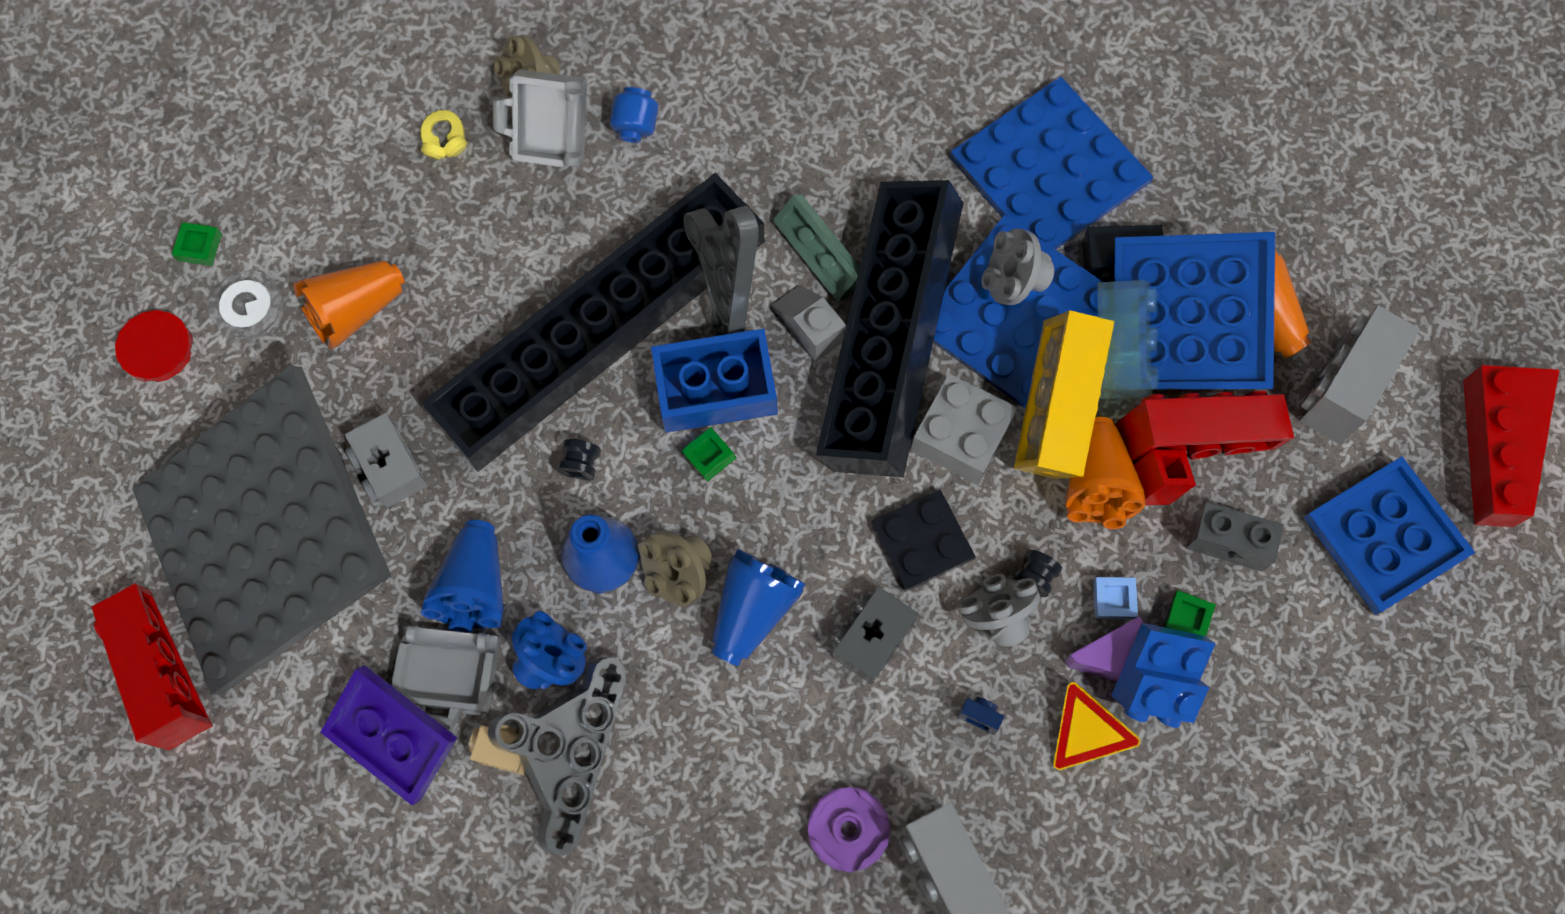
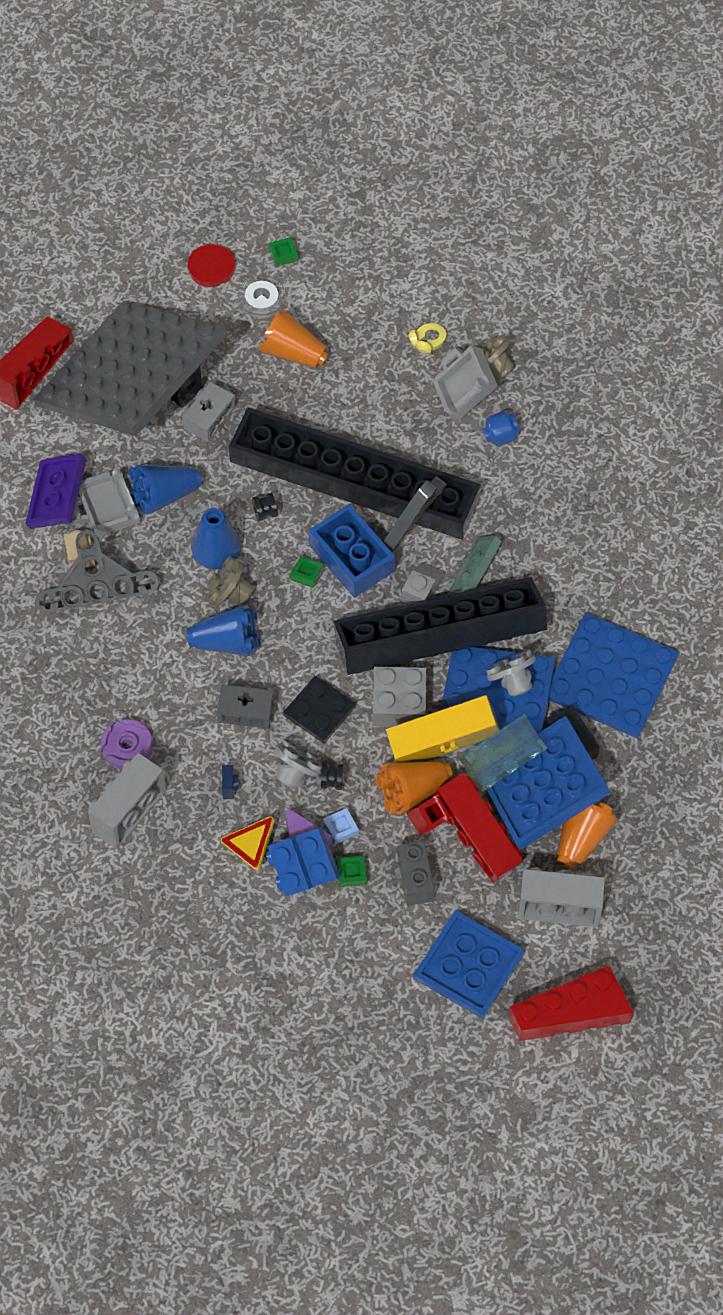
camera: 60 degrees right, 10 degrees down
(546, 653) = (143, 543): blue plate -> none

